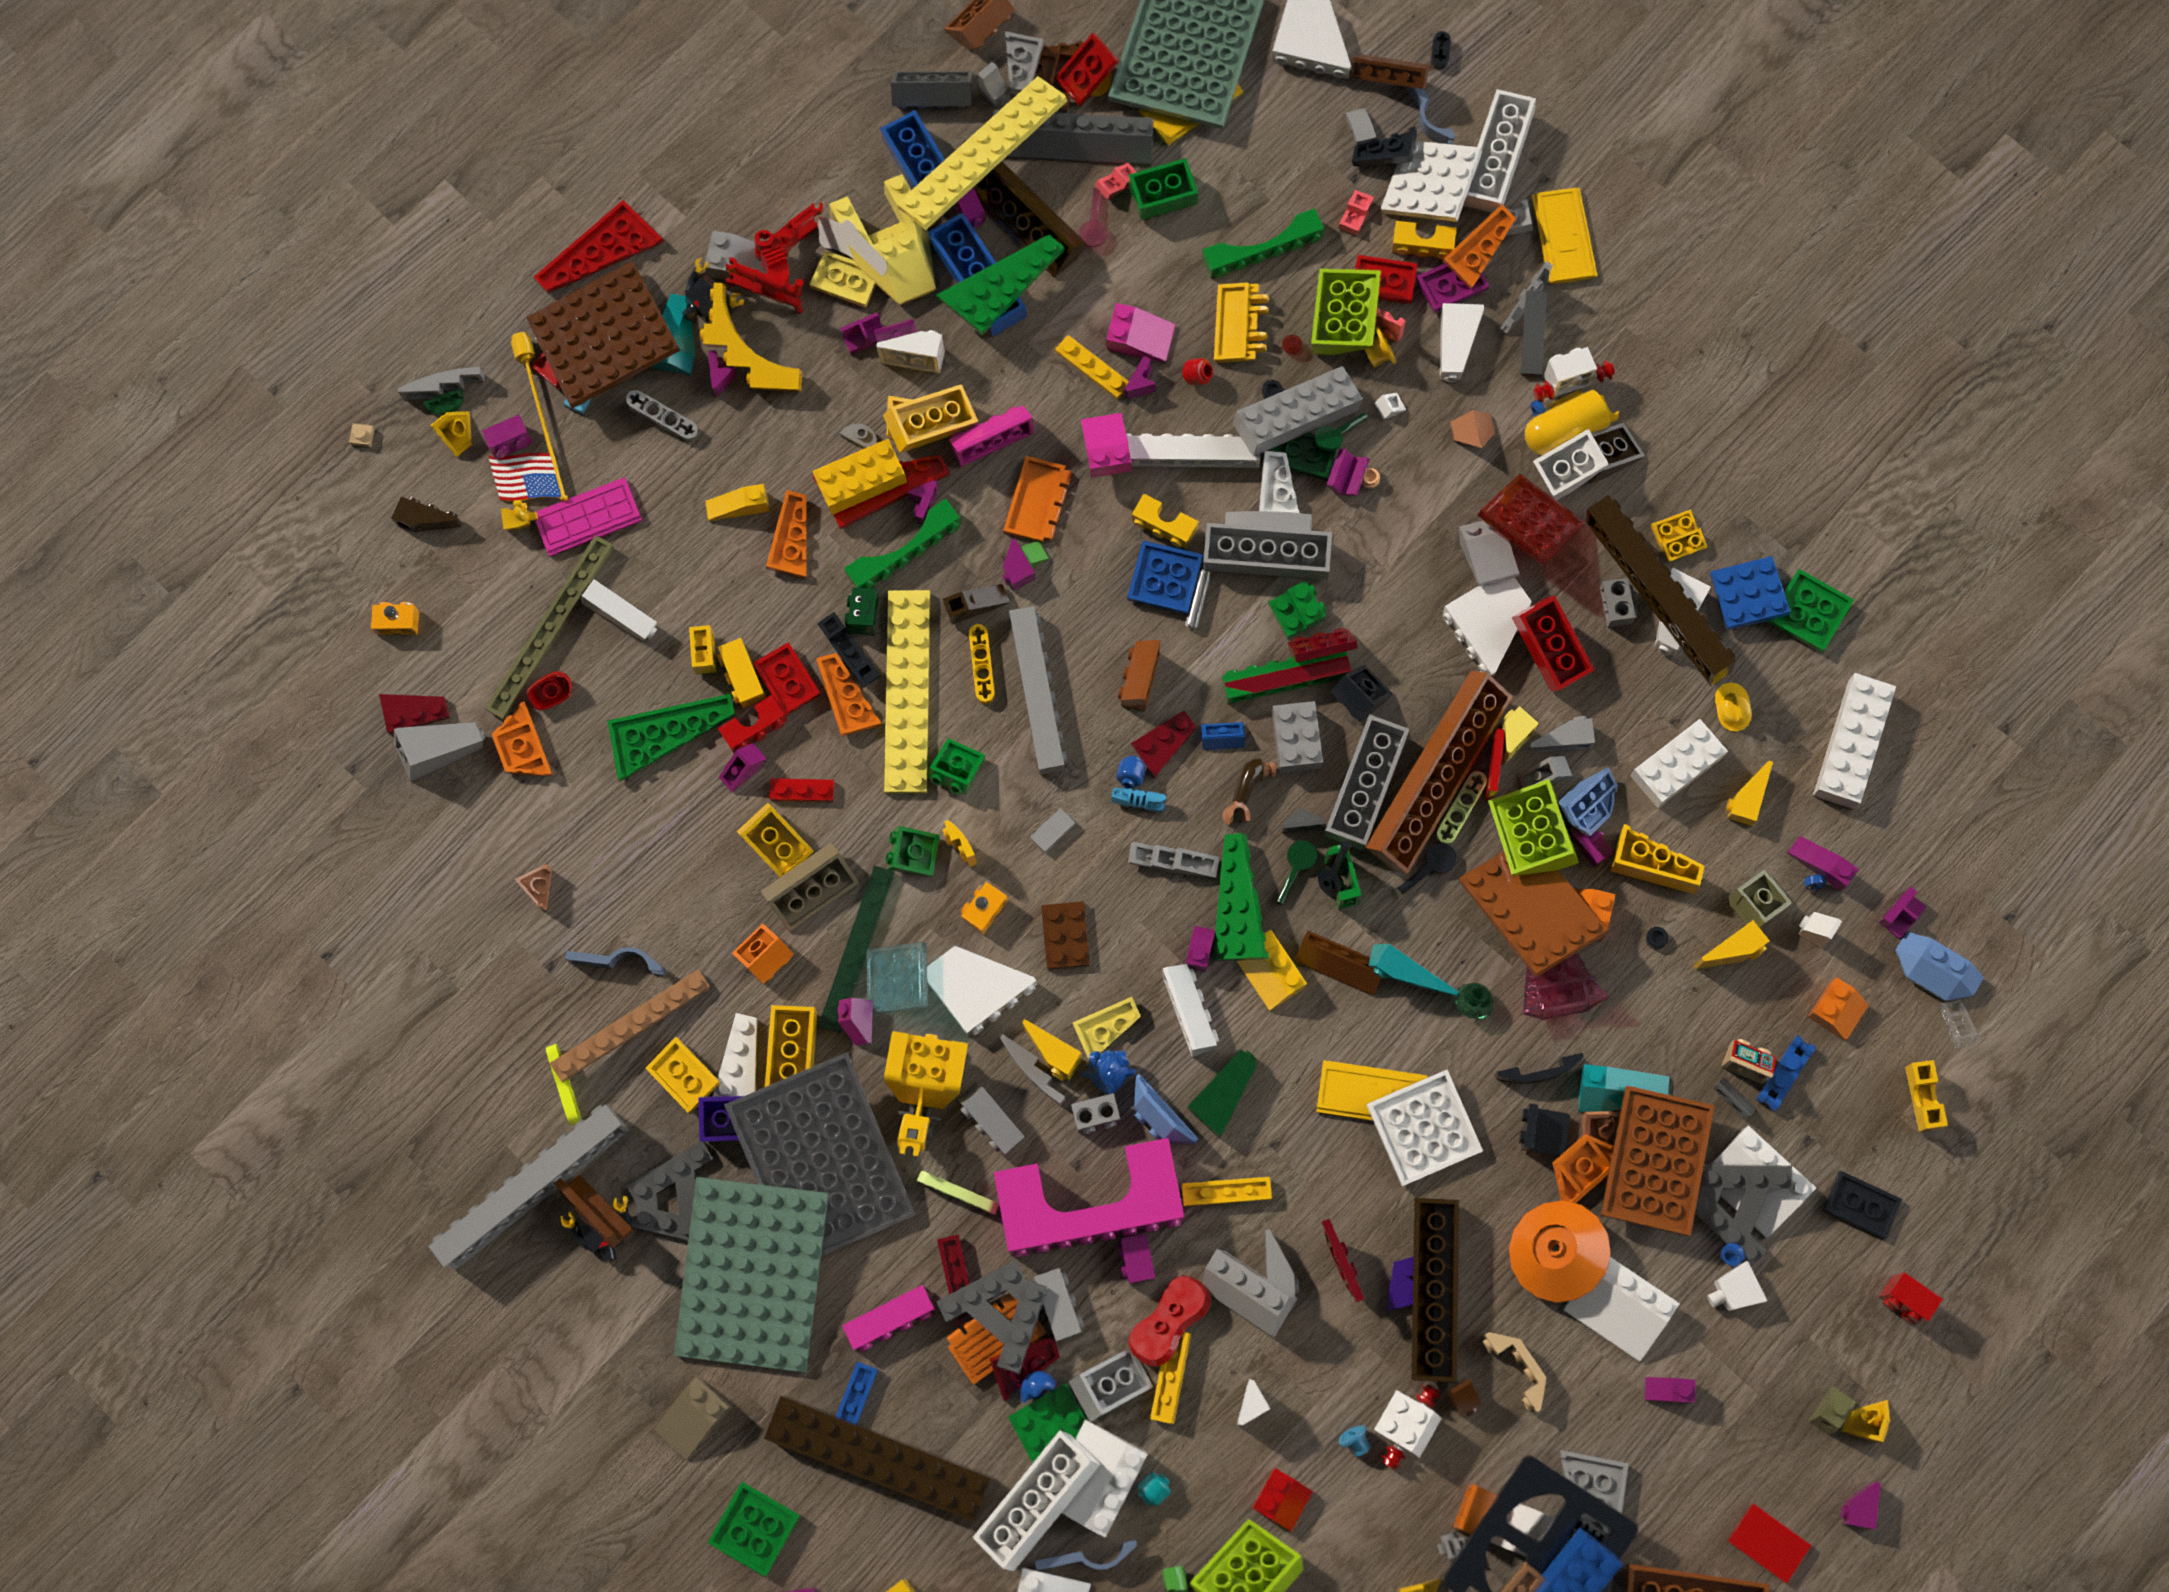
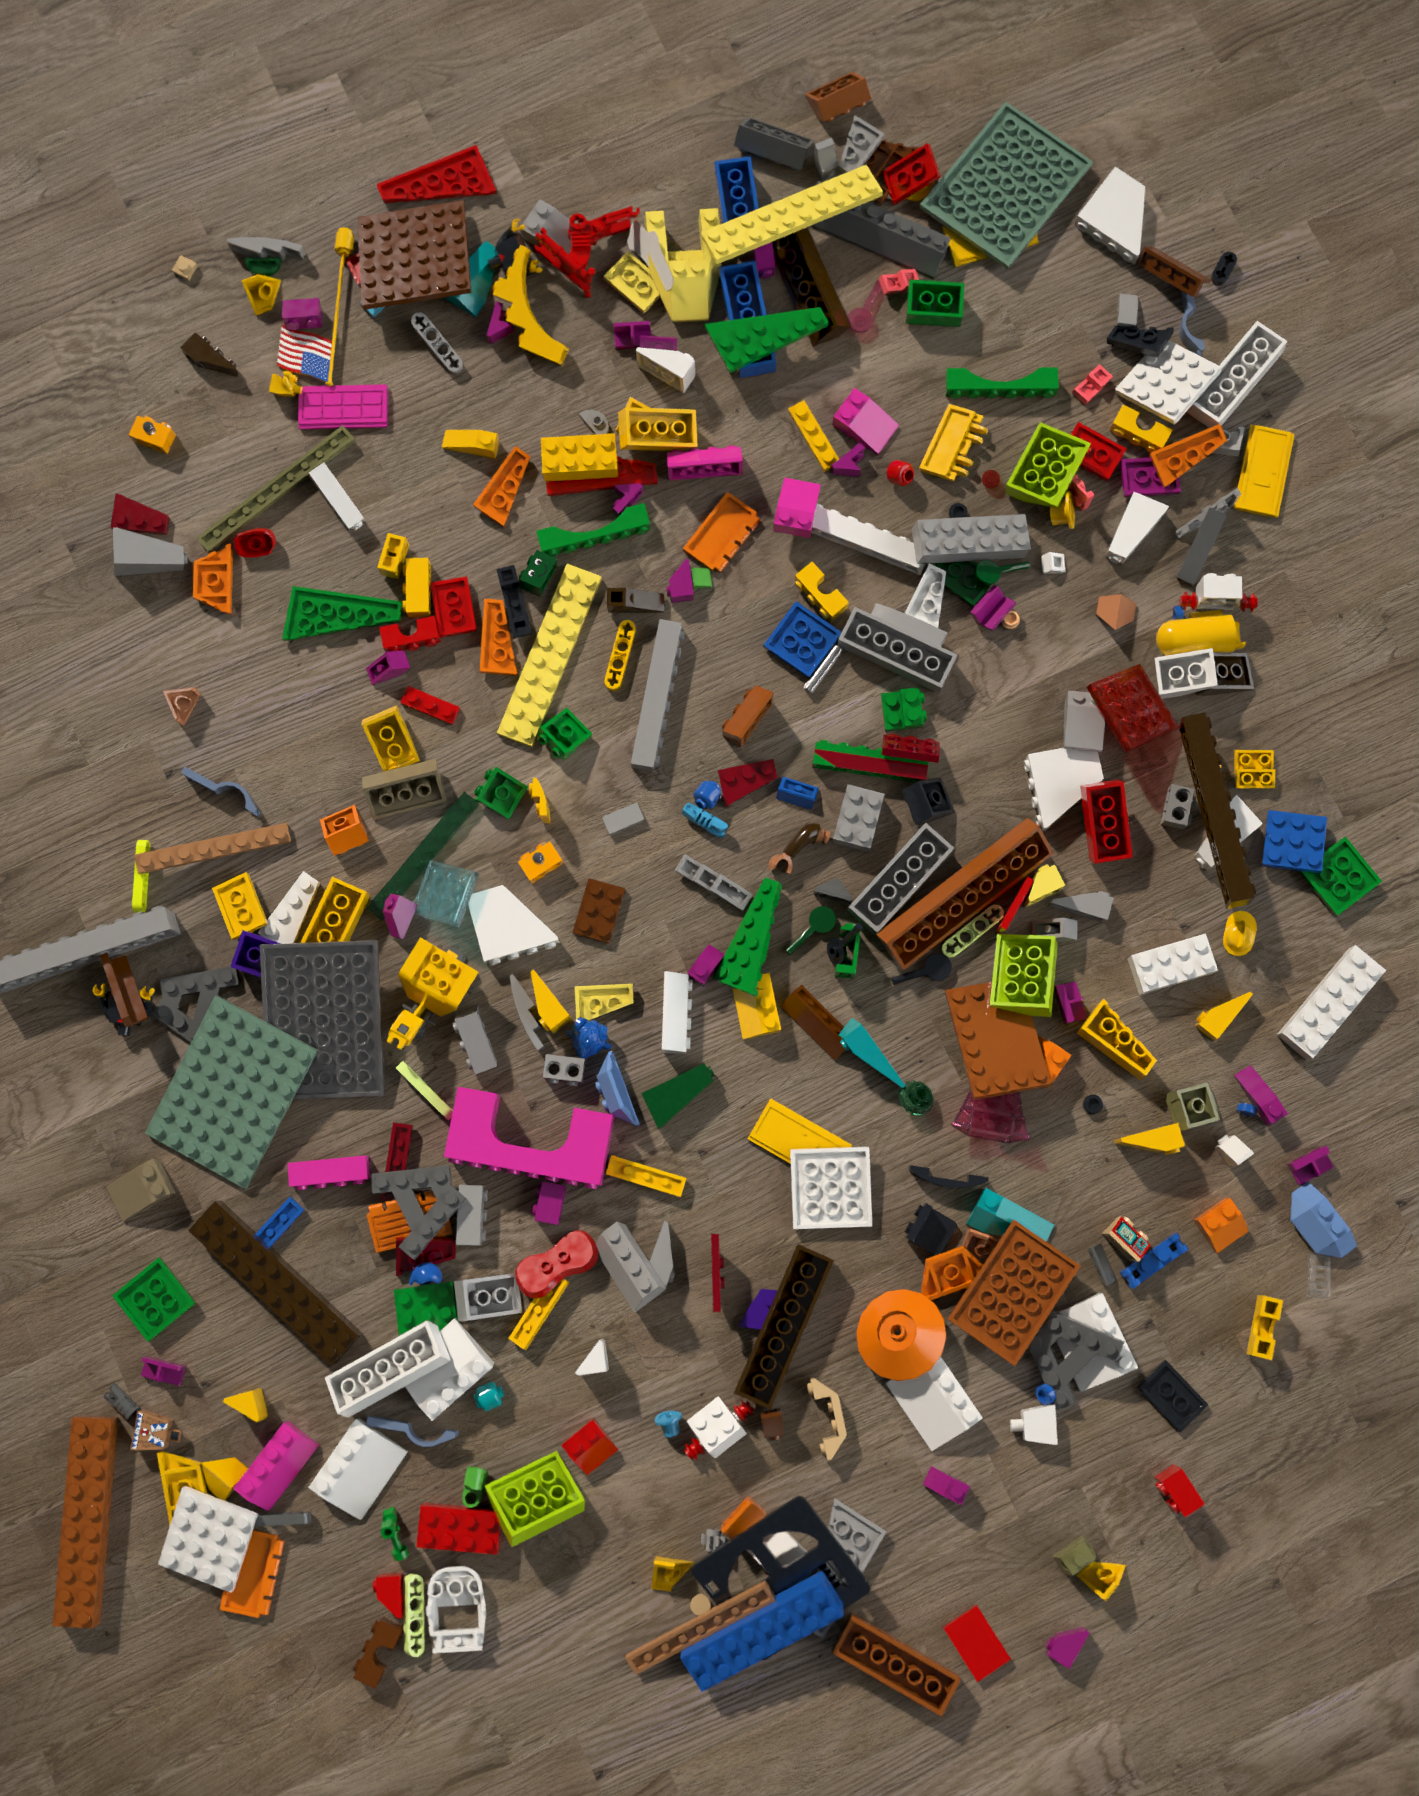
camera: 20 degrees right, 5 degrees up
(1590, 802) = (1082, 968): medium blue wedge -> none

